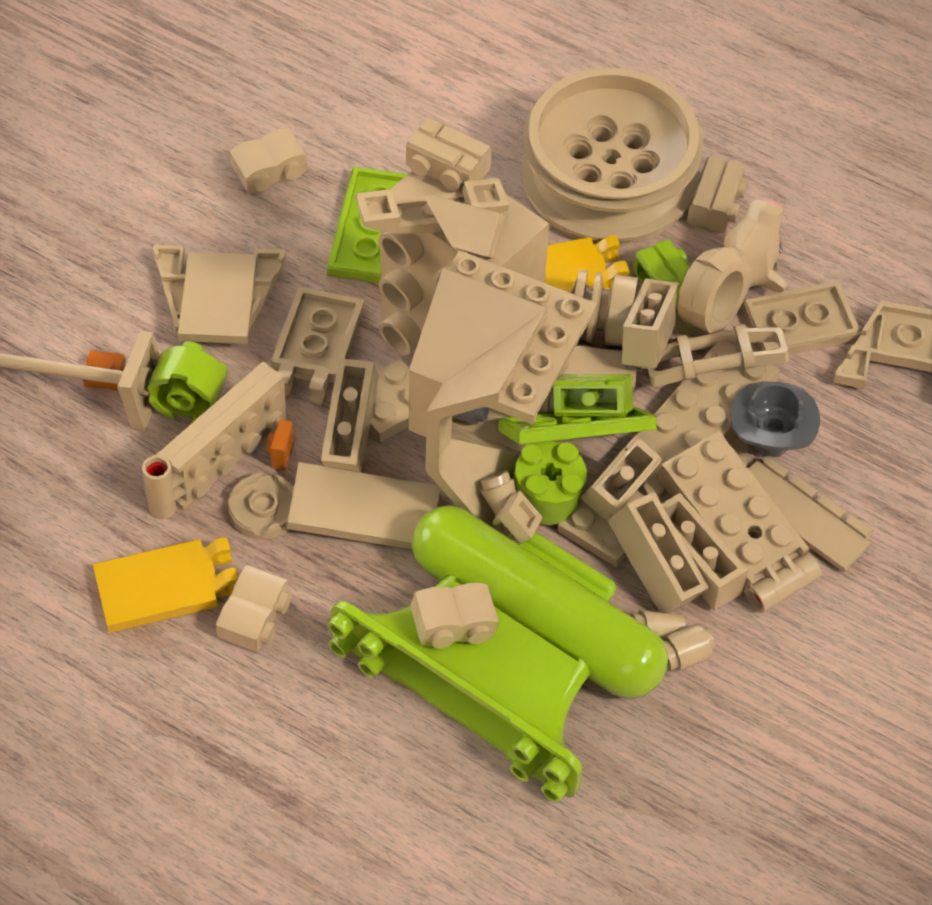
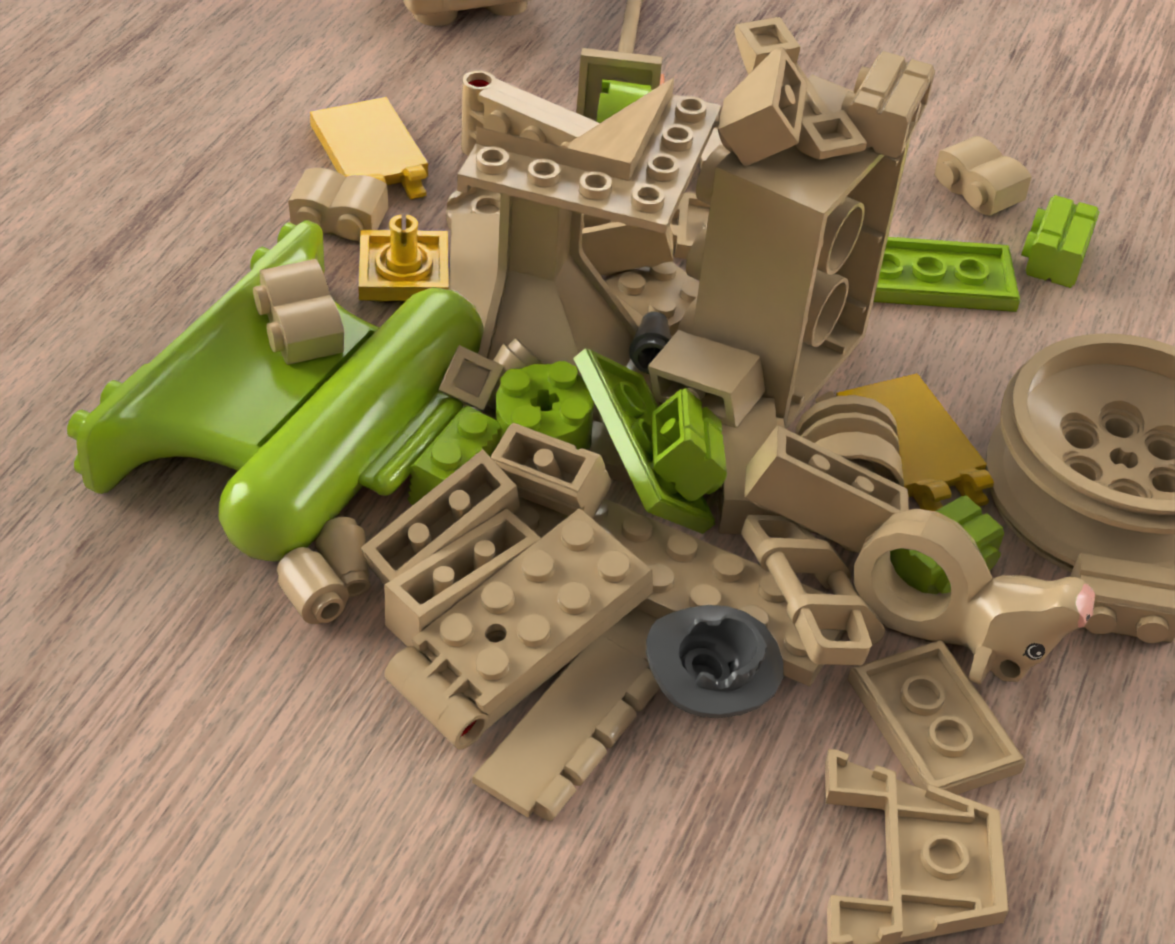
camera: 80 degrees right, 10 degrees down
(334, 568) = (401, 261): none -> yellow plate
(356, 132) = (1059, 240): none -> lime brick
(580, 540) = (452, 448): none -> lime brick

